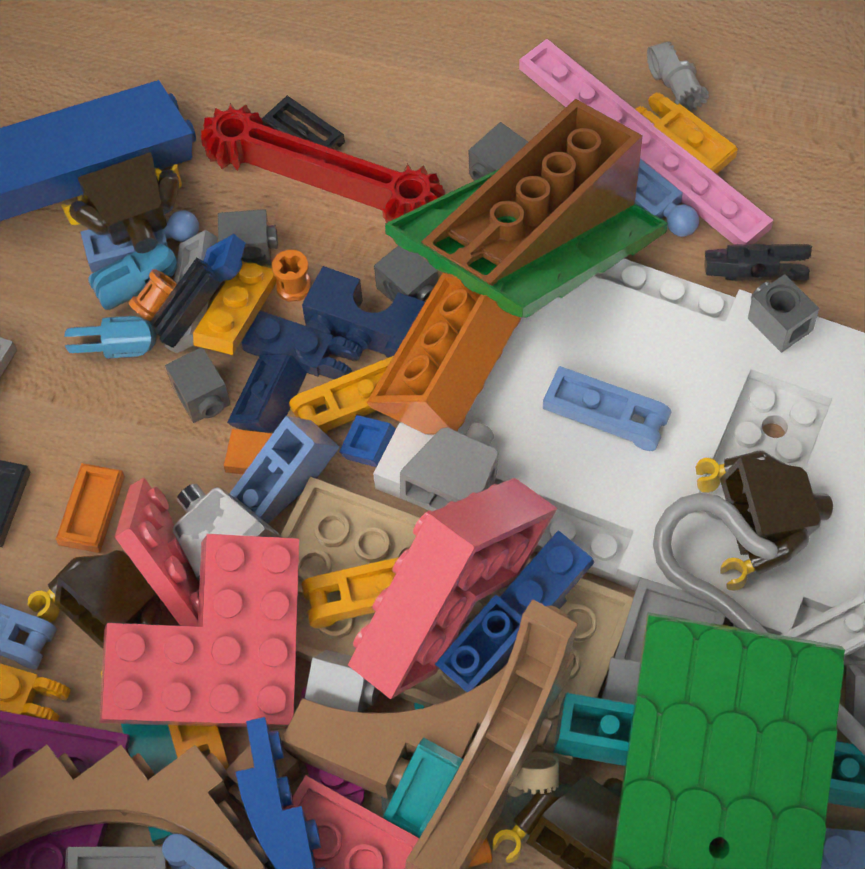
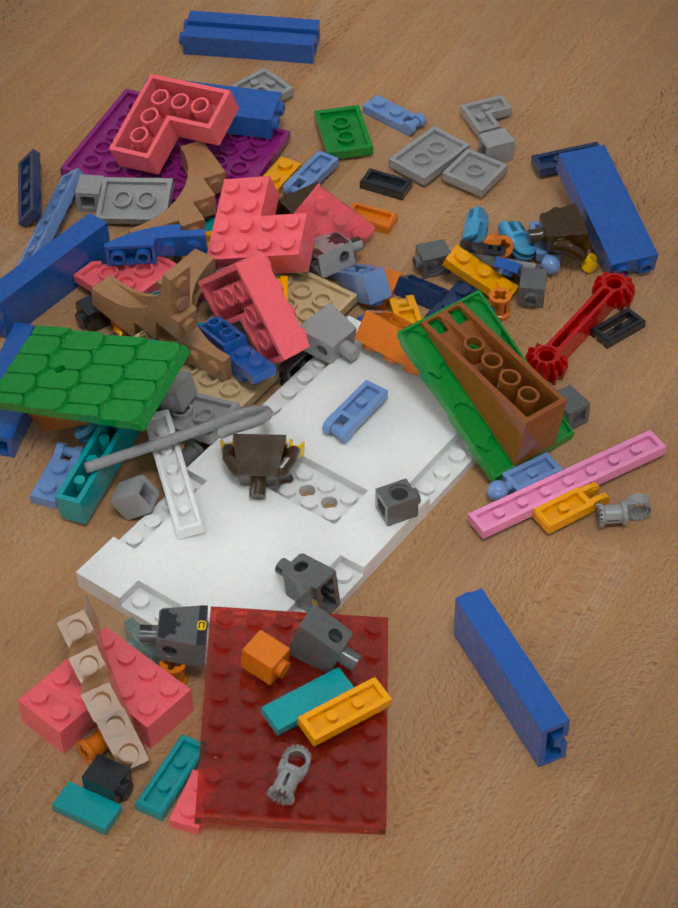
camera: 100 degrees right, 15 degrees down
(758, 262) = (453, 521): black hinge -> none

